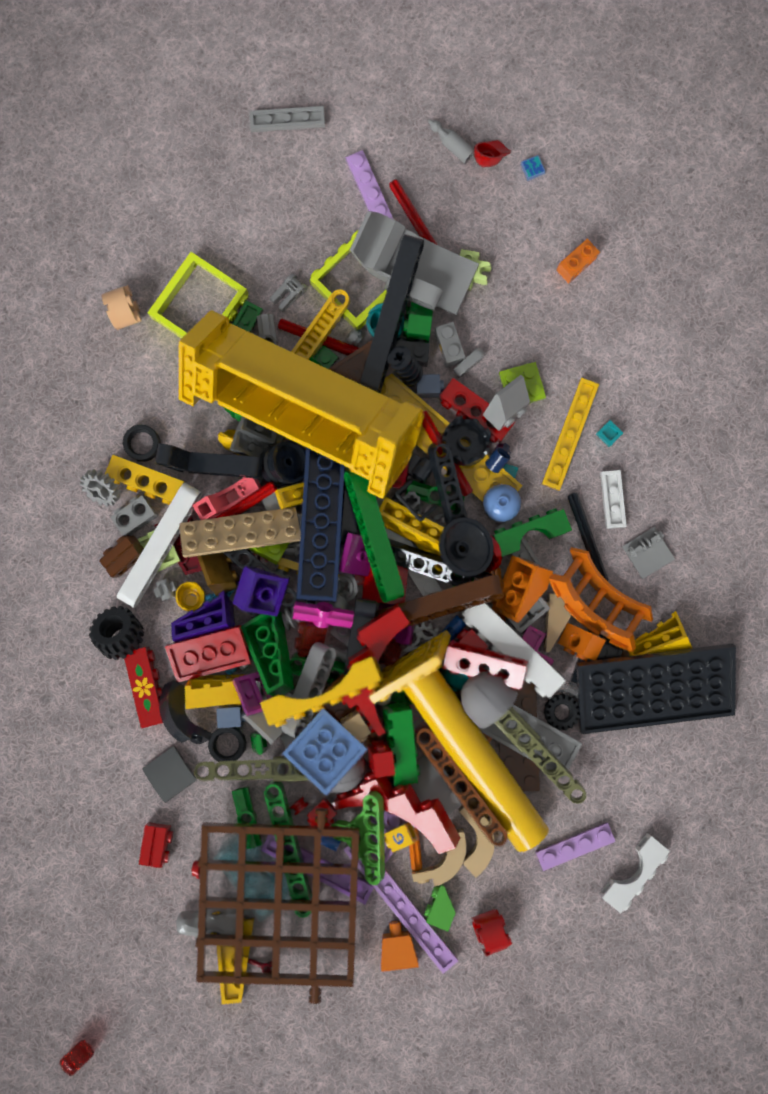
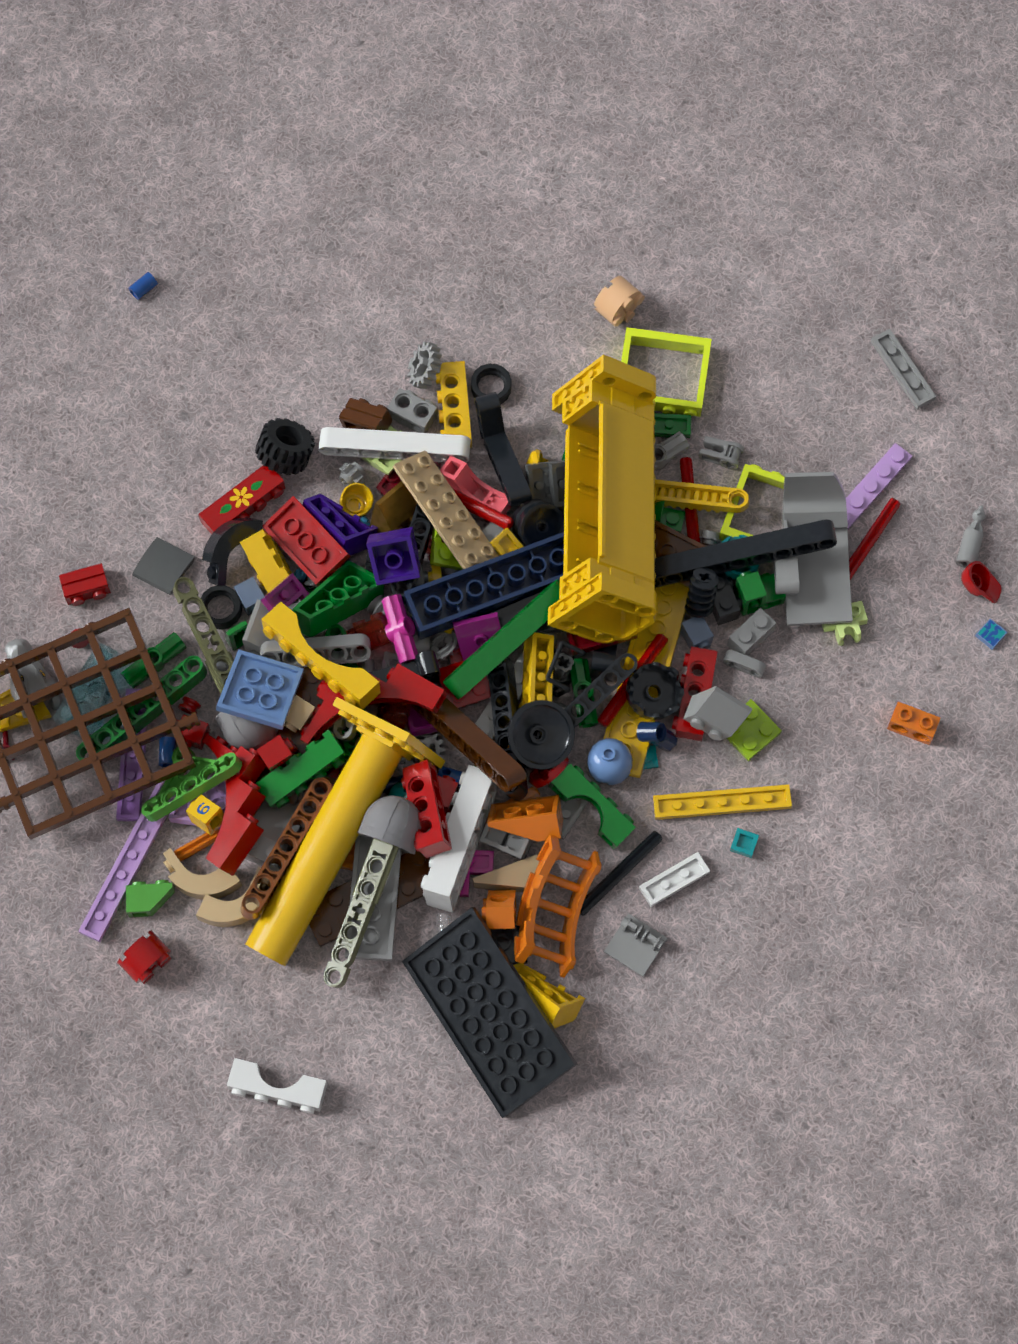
camera: 60 degrees right, 15 degrees down
(398, 949) = (84, 873): orange torso -> none
(573, 715) = (410, 917): black tyre -> none
(575, 846) = (276, 1011): lavender plate -> none

